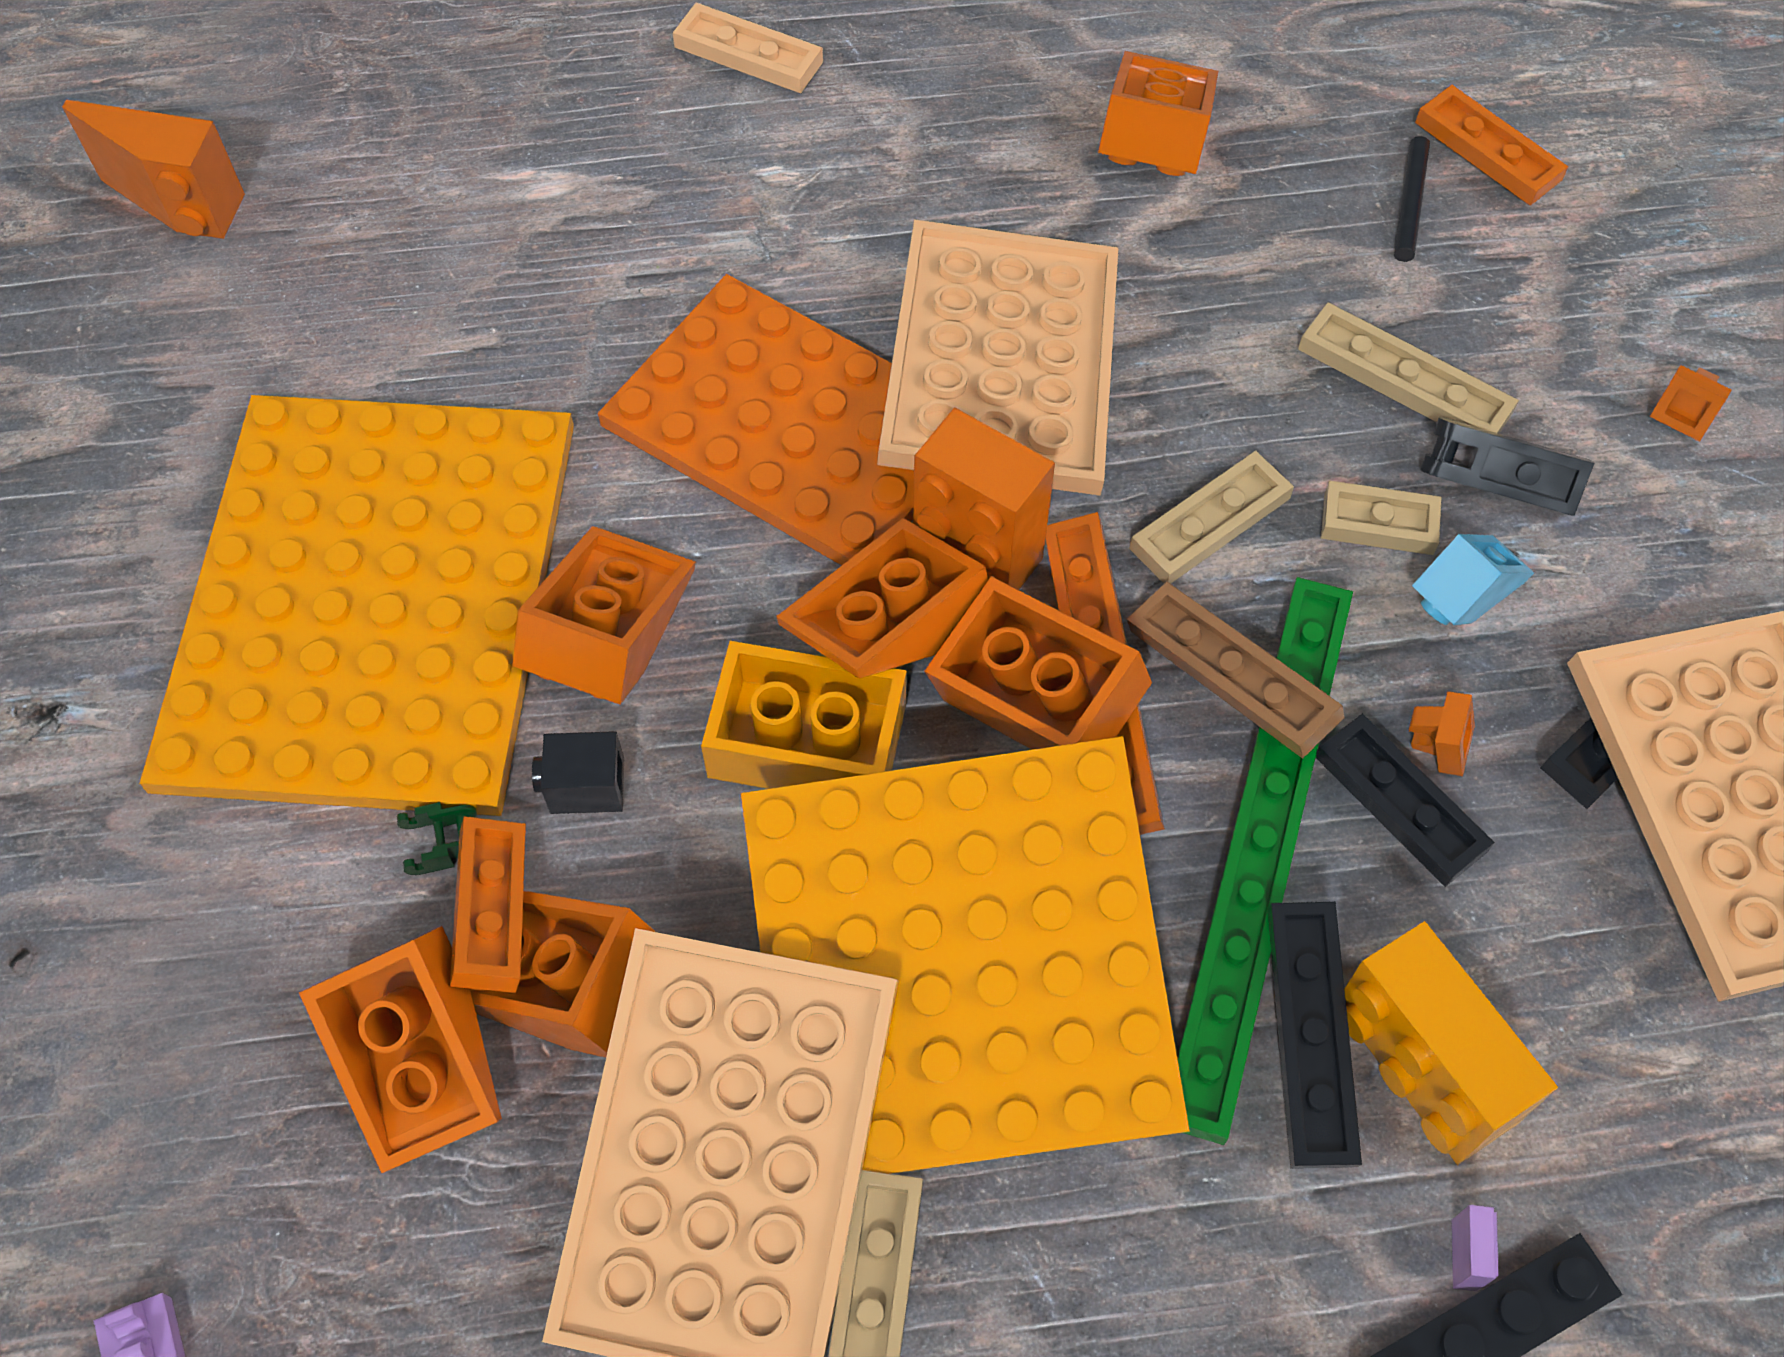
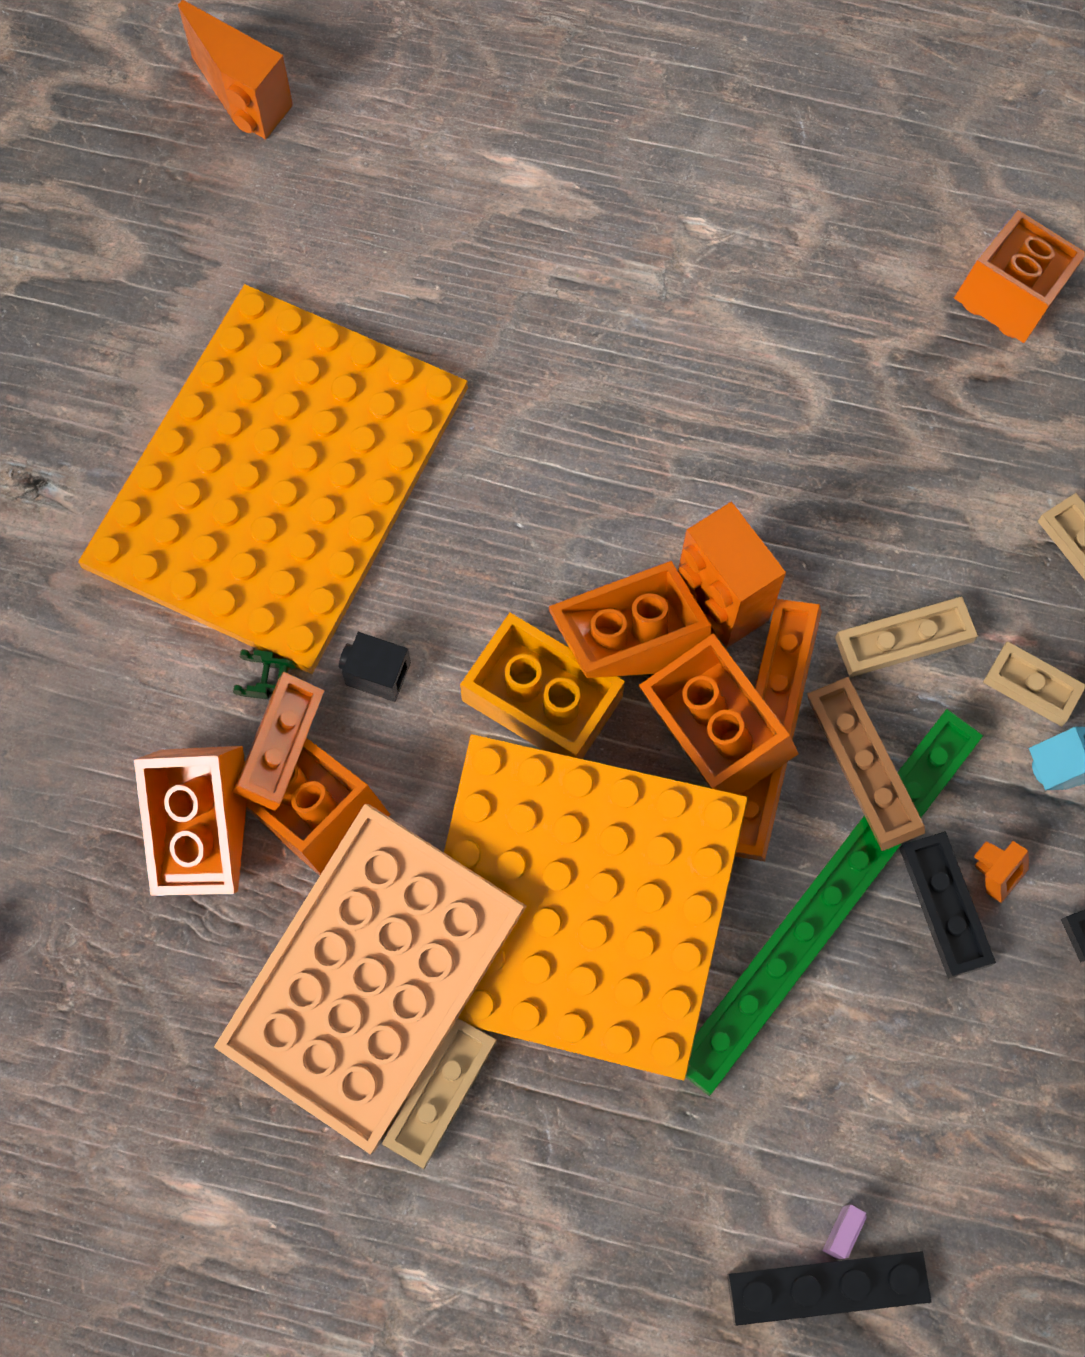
camera: 20 degrees right, 10 degrees up
(600, 614) = (433, 549): orange slope -> none
(748, 47) = (717, 106): light nougat plate -> none
(770, 419) = (626, 441): orange plate -> none
(1010, 337) = (805, 447): light nougat plate -> none
(1313, 1036) = (801, 1047): black plate -> none
(1443, 1044) = (882, 1090): light orange brick -> none

